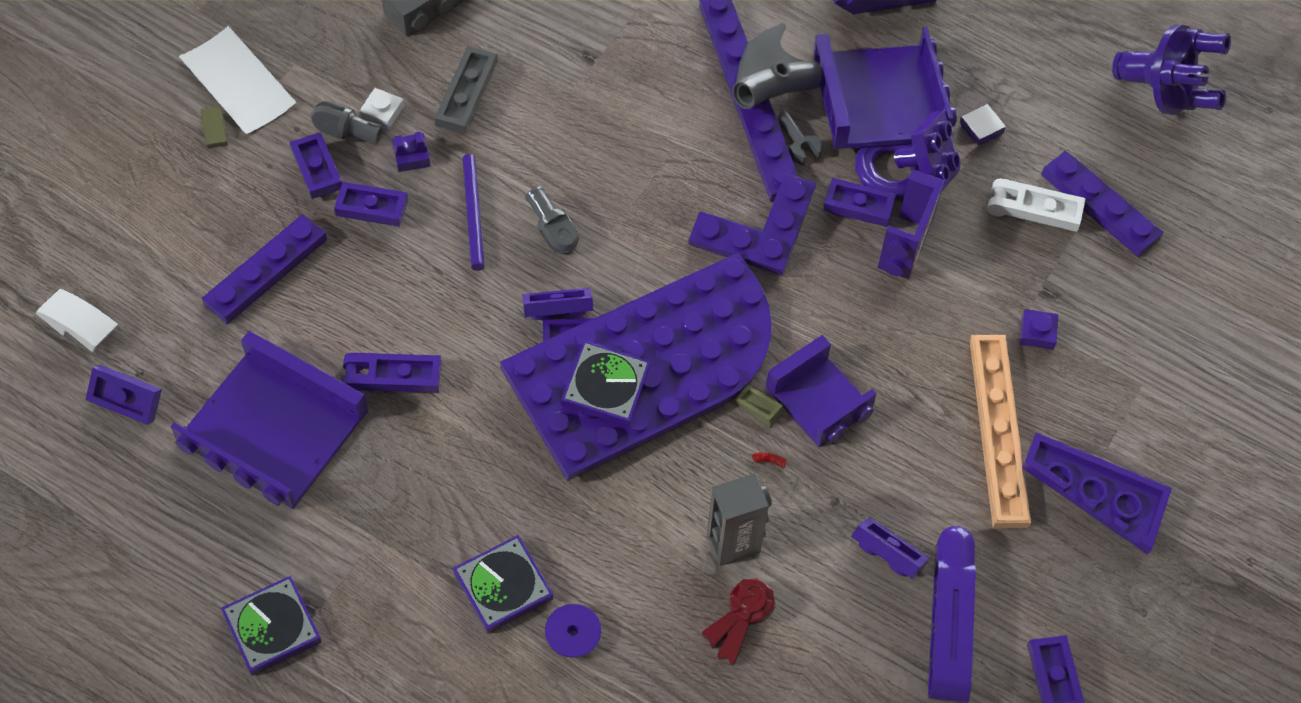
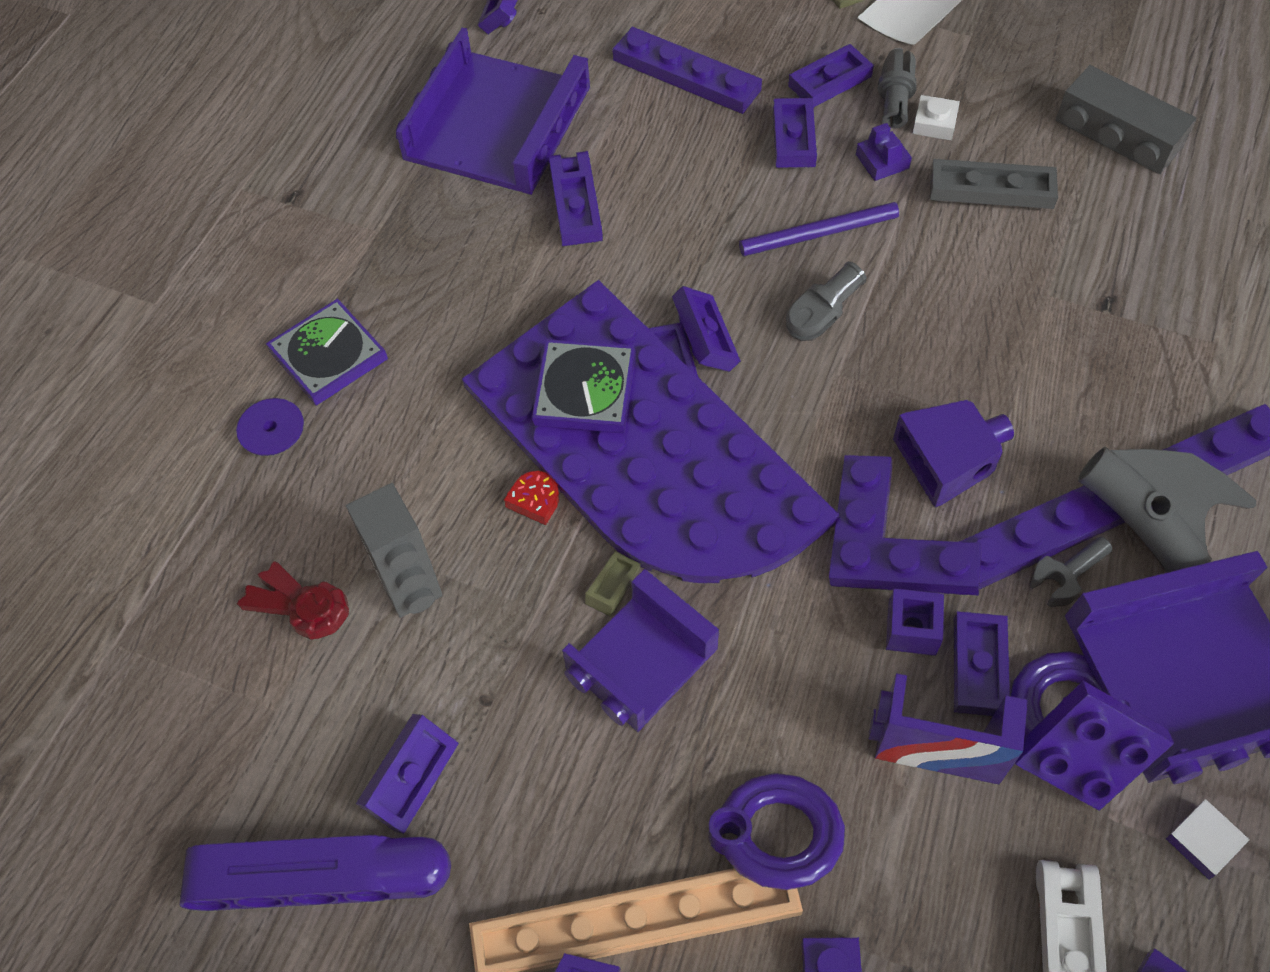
camera: 85 degrees right, 0 degrees up
(271, 625) = (265, 168): tile -> none
(678, 444) = (534, 496): none -> red tile
(699, 175) = (951, 447): none -> dark purple torso
(761, 457) = (534, 603): red leg -> none
(828, 228) = (920, 610): none -> dark purple plate
(966, 358) = (770, 870): none -> dark purple piece

